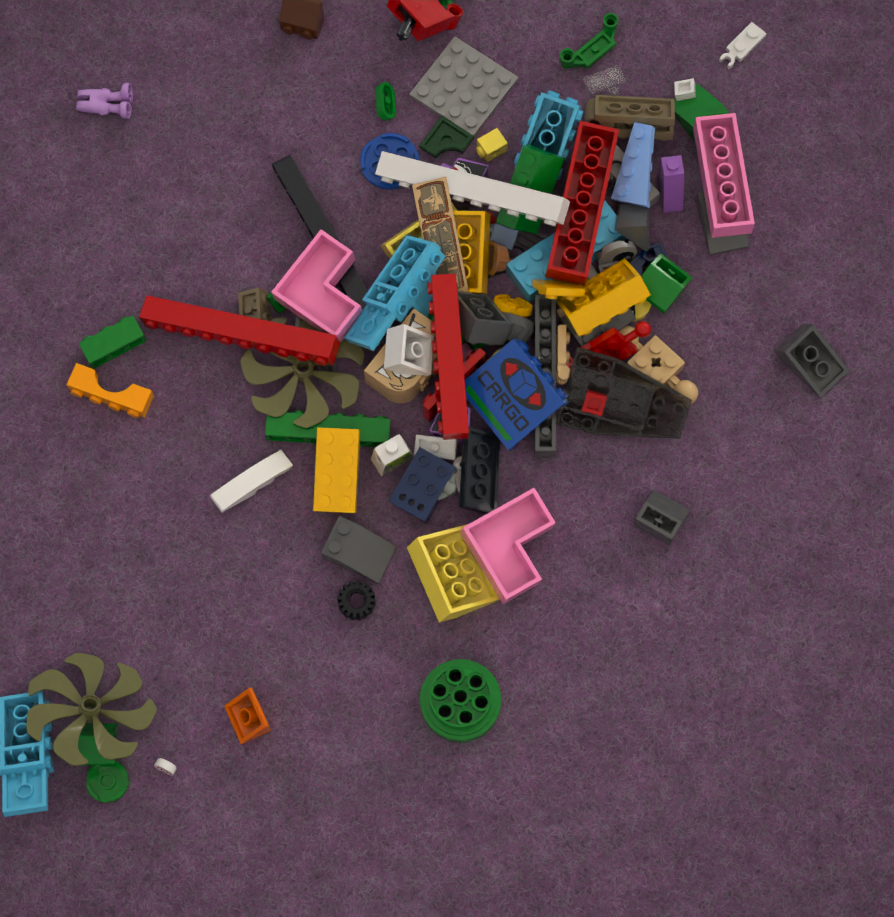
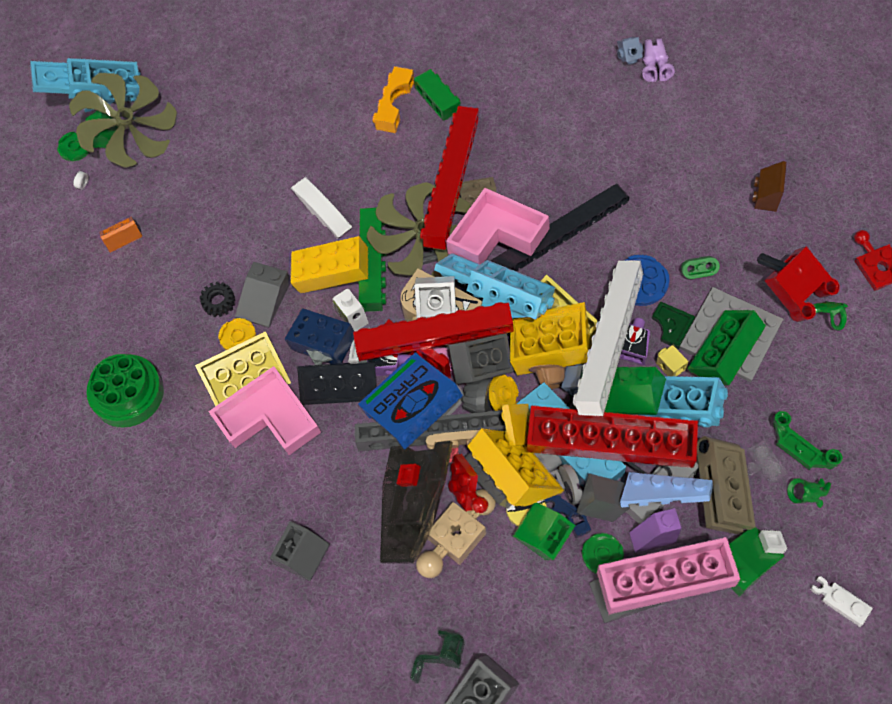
camera: 90 degrees right, 10 degrees down
(89, 124) = (629, 50): none -> sand blue brick
(402, 581) = (236, 332): none -> yellow tile
(439, 226) = (561, 318): sticker -> none
(485, 89) = (728, 345): none -> green slope
(639, 44) = (812, 491): none -> green piece
(682, 245) = (596, 551): none -> green tile
(773, 382) = (447, 655): none -> clear green piece

